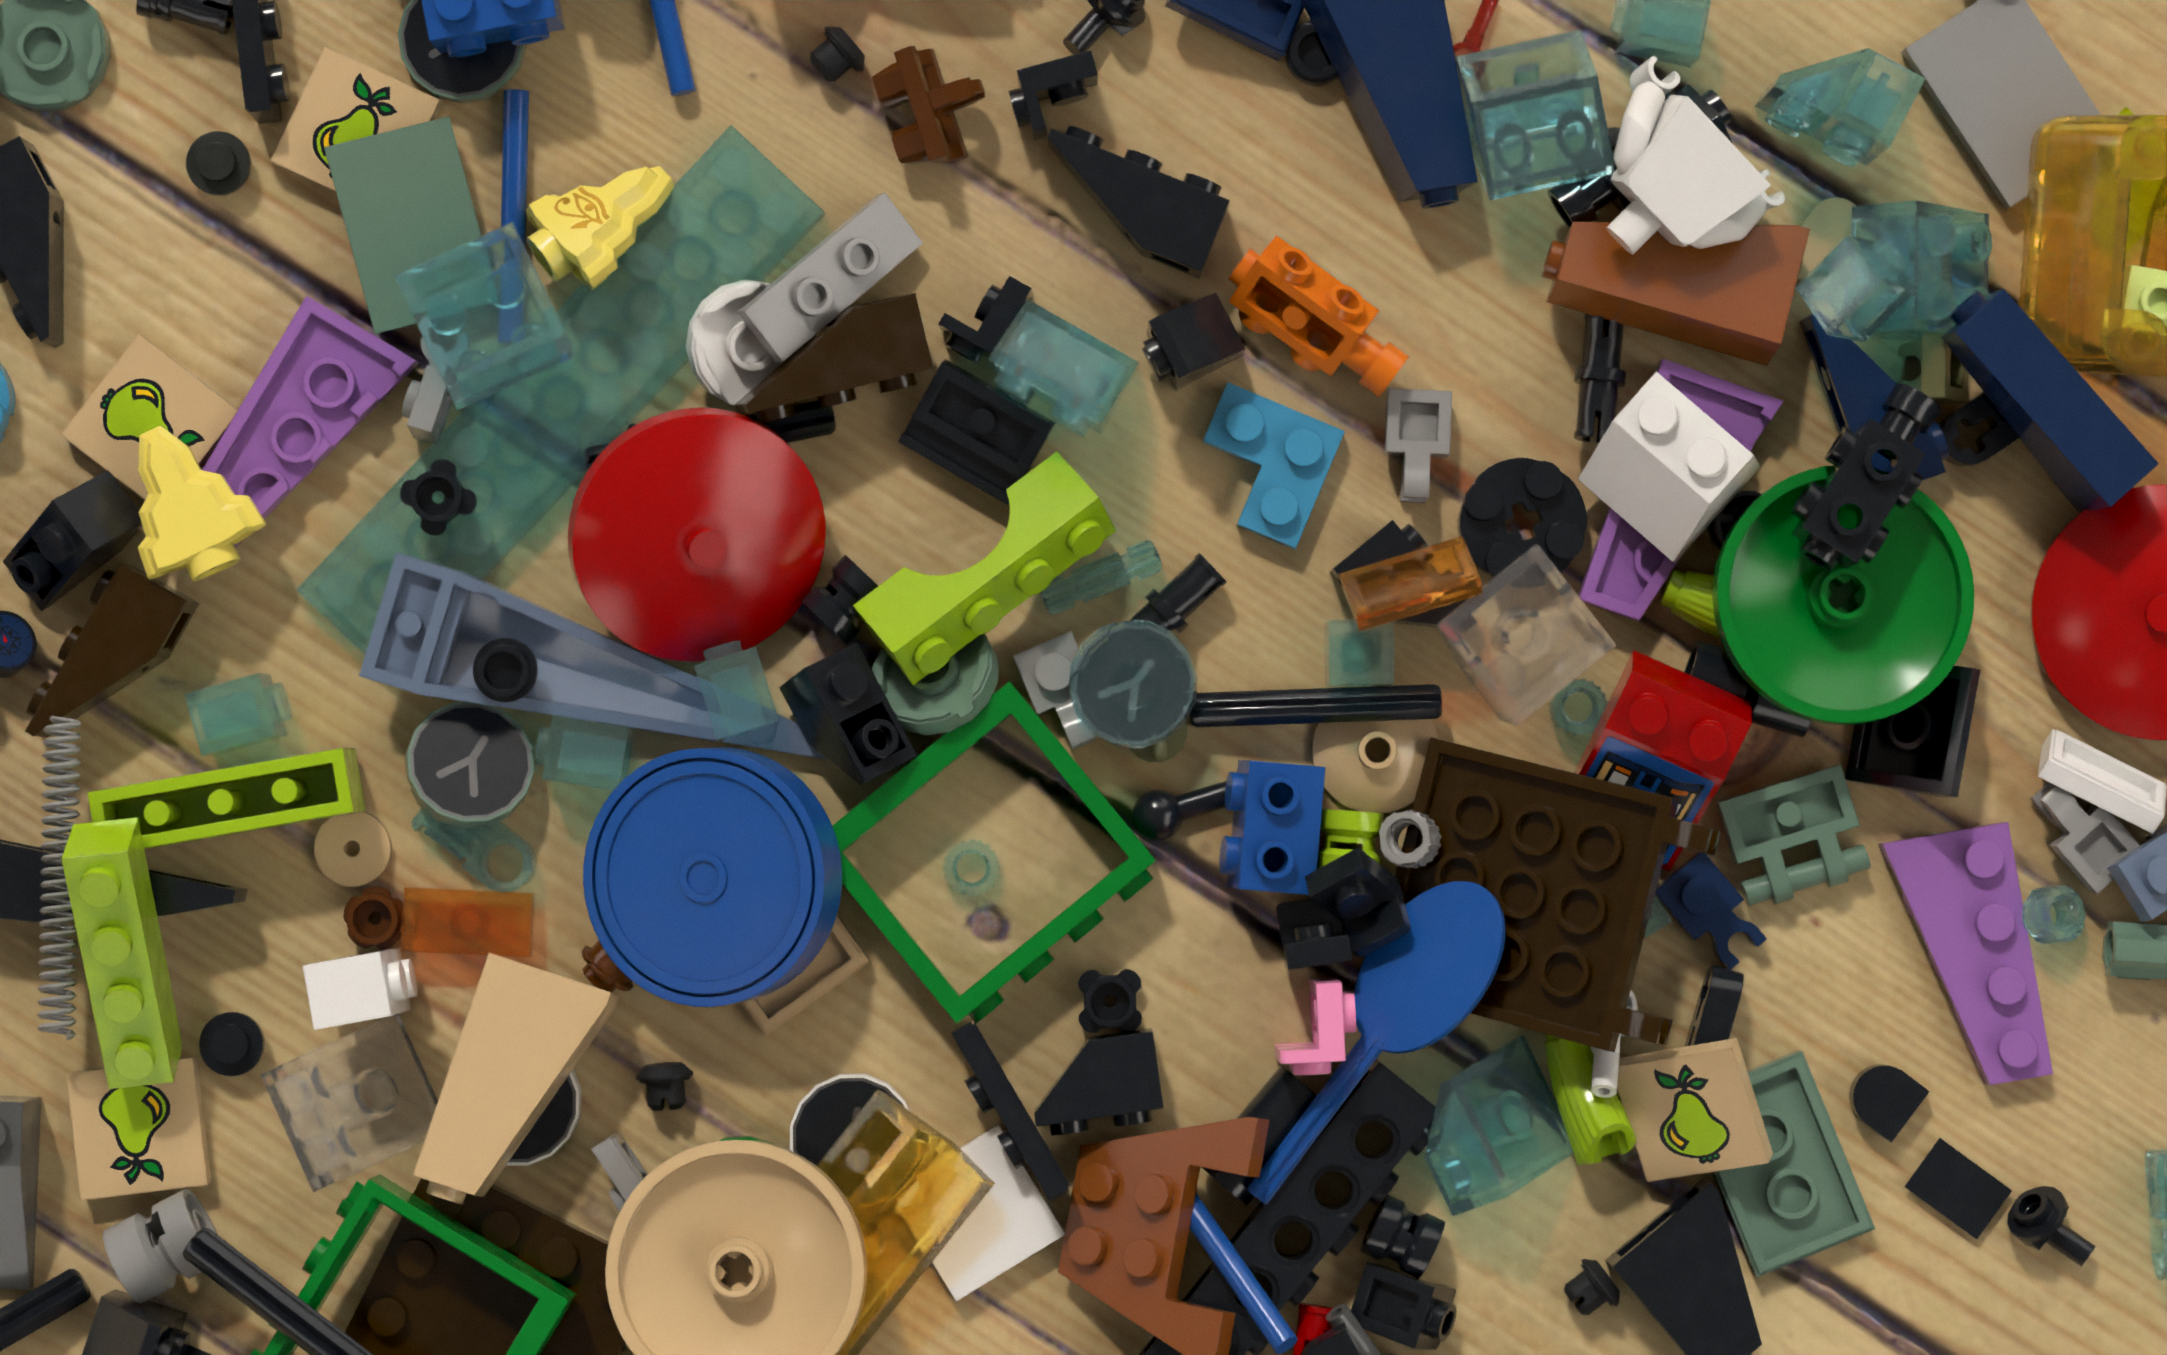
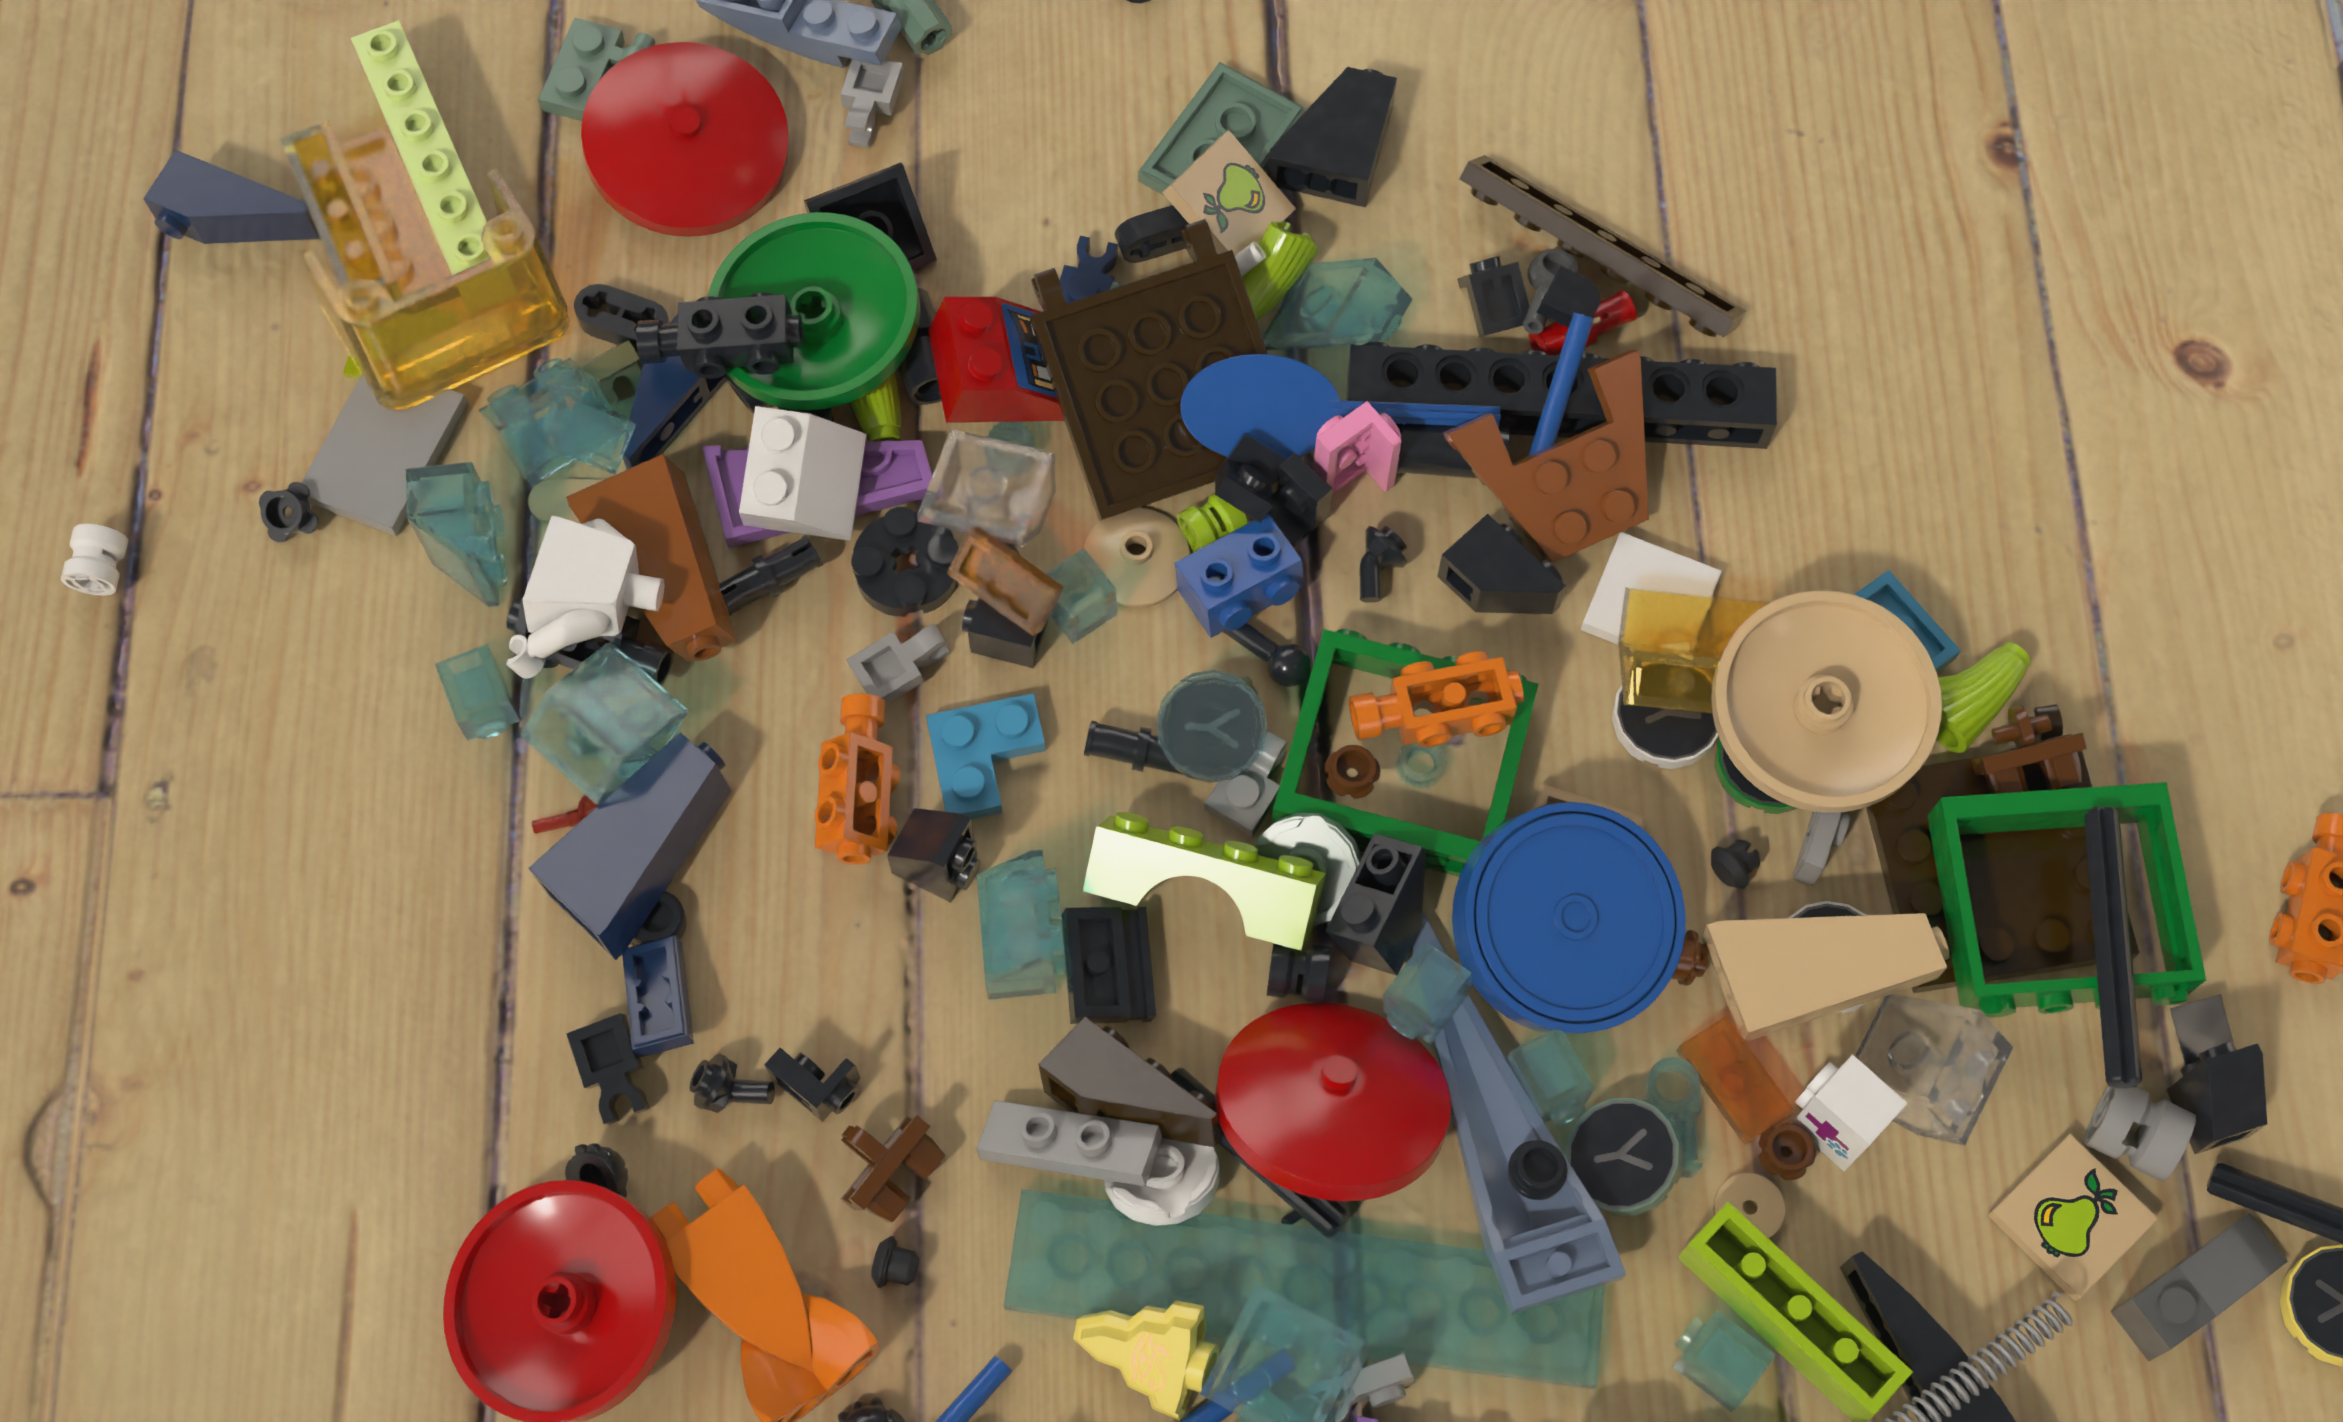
camera: 125 degrees left, 20 degrees down
(122, 952) = (1965, 1300): lime brick -> none
(231, 1043) = (1958, 1190): black plate -> none
(420, 493) = (1442, 1300): black plate -> none
(972, 778) = (1359, 759): none -> reddish brown plate
(985, 916) = (1446, 696): none -> orange brick
(992, 1089) = (1579, 594): black plate -> none
(996, 314) = (1010, 1003): black bracket -> none
(1102, 577) = (1120, 794): clear light blue axle -> none
(1122, 1014) = (1442, 594): black plate -> none
(1156, 213) = (857, 951): black slope -> none
(1207, 987) = (1383, 551): none -> black plate
(1317, 705) = (1134, 603): black axle -> none
(1390, 833) = (1170, 495): light grey axle -> none
(1402, 1236) = (1449, 320): black wheel -> none
(1593, 1286) = (1390, 197): black piece -> none
(1787, 816) = (983, 270): sand green plate -> none
(1885, 1098) = (1130, 108): black tile -> none
(1958, 1188) = (1155, 35): black piece -> none
(1970, 916) = (975, 128): medium lavender wing -> none
(2047, 402) = (589, 268): dark blue slope -> none
(2068, 909) = (935, 82): clear light blue axle -> none
(2102, 780) = (825, 105): white tile -> none

